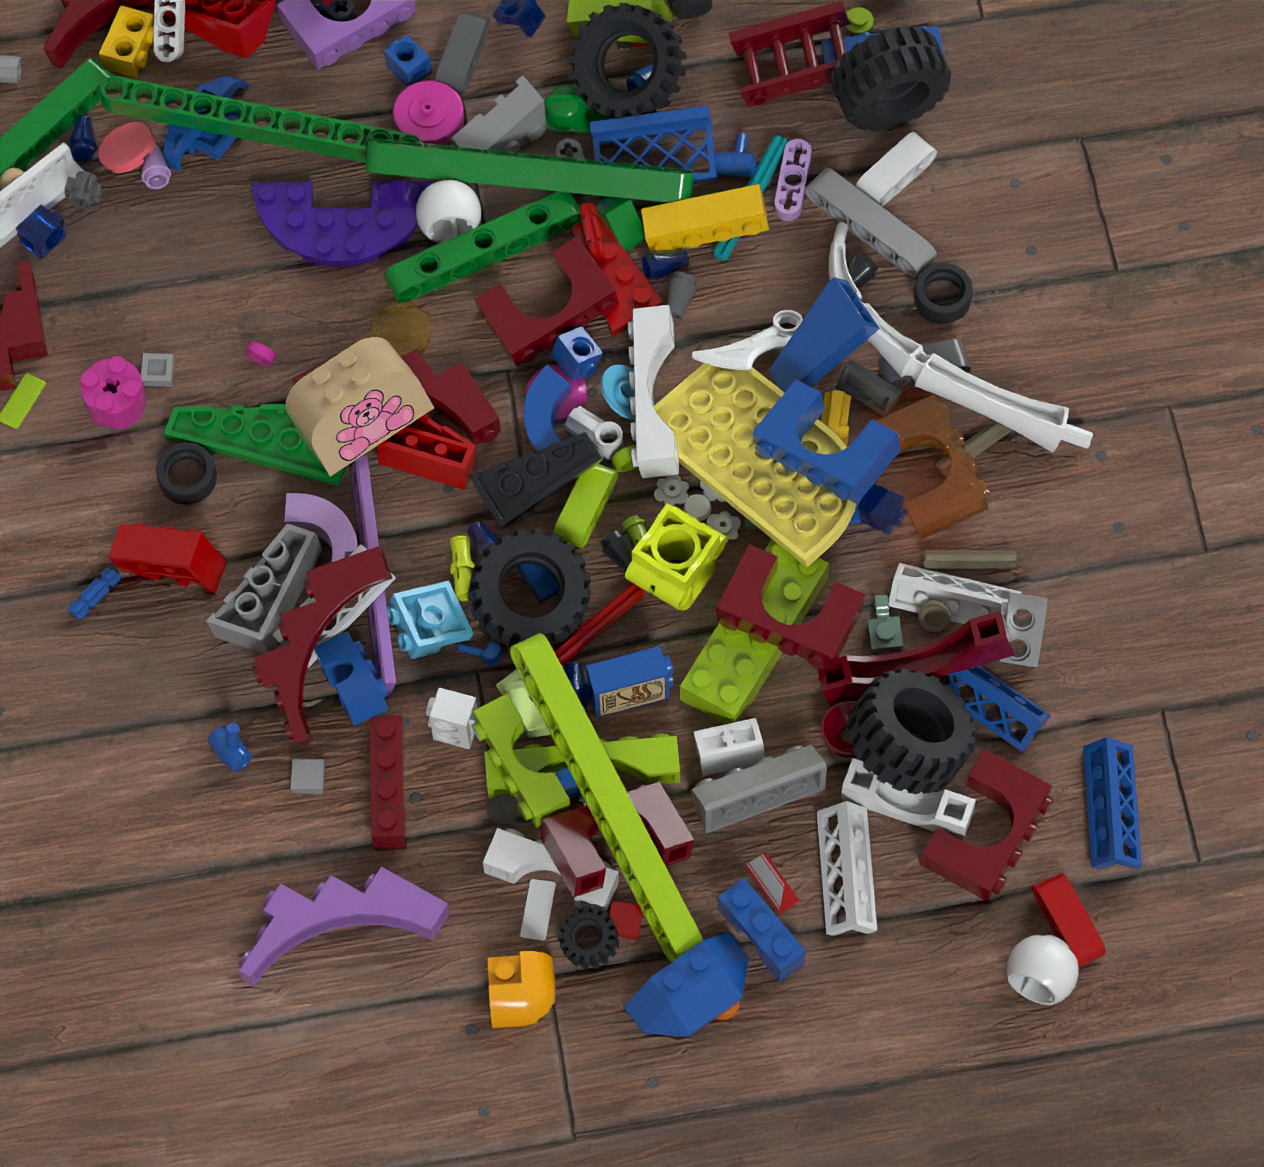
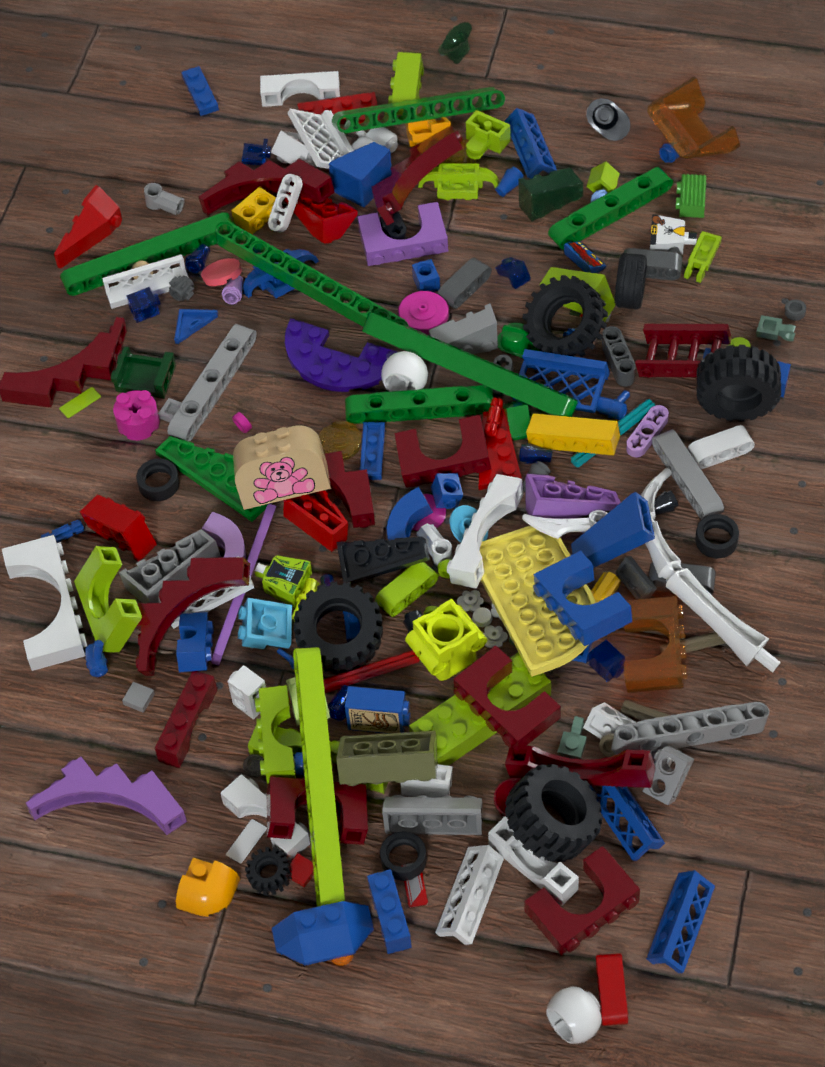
camera: 25 degrees right, 10 degrees down
(91, 331) = (143, 373): none -> dark green panel
(91, 641) = (62, 638): none -> white arch
(118, 231) = (191, 321): none -> blue tile
(180, 655) = (93, 582): none -> lime arch
(192, 329) = (212, 383): none -> light grey beam
(422, 548) = (284, 578): none -> lime torso
(449, 329) = (373, 449): none -> blue tile
(676, 738) = (387, 758): none -> olive slope
(717, 100) = (618, 356): none -> dark grey beam
(732, 313) = (564, 501): none -> medium lavender wedge
(740, 830) = (399, 839): none -> black tyre
(1024, 561) = (691, 728): none -> light grey beam

